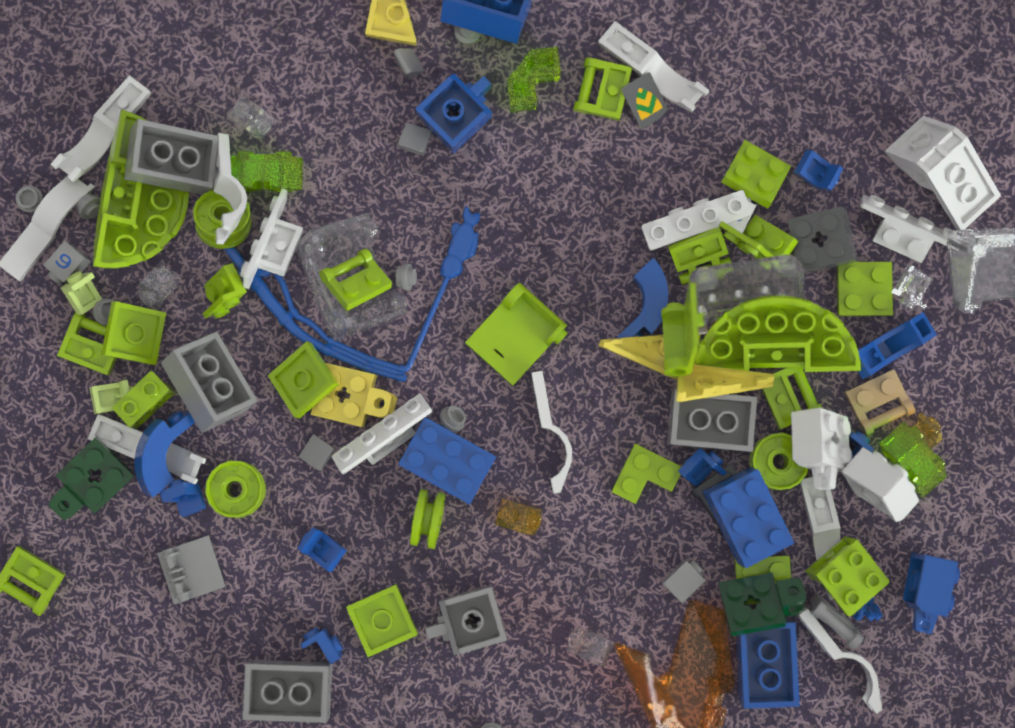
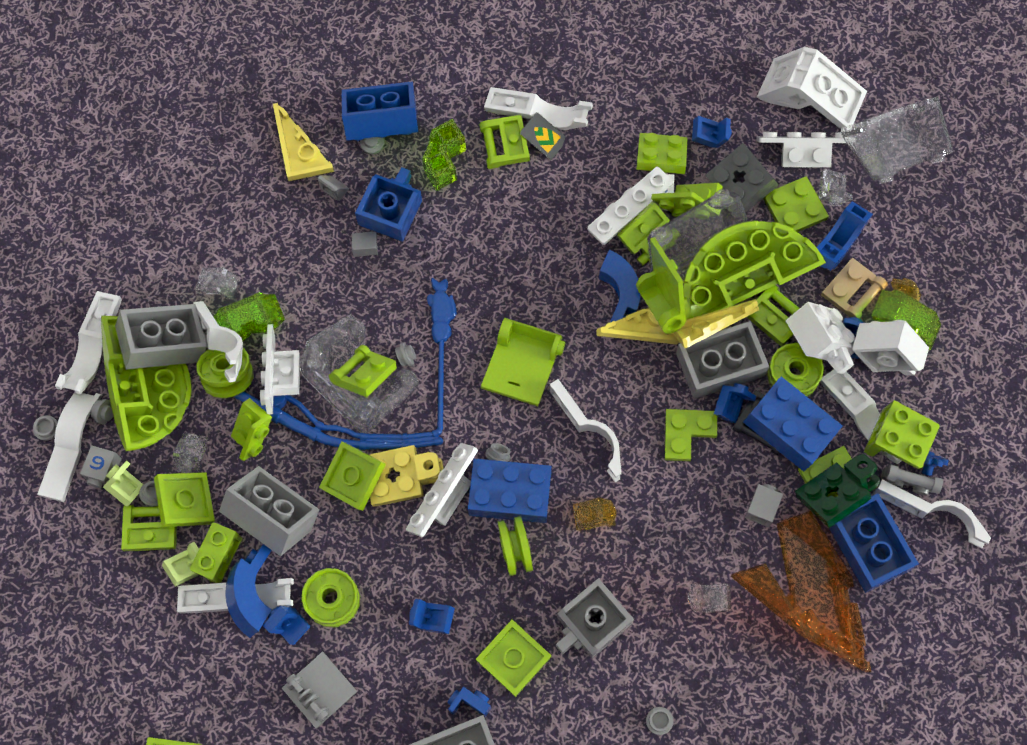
camera: 20 degrees left, 15 degrees down
(80, 489) = (188, 658): dark green plate -> none
(317, 452) = (391, 536): light grey slope -> none
(930, 589) = (976, 416): blue hinge -> none

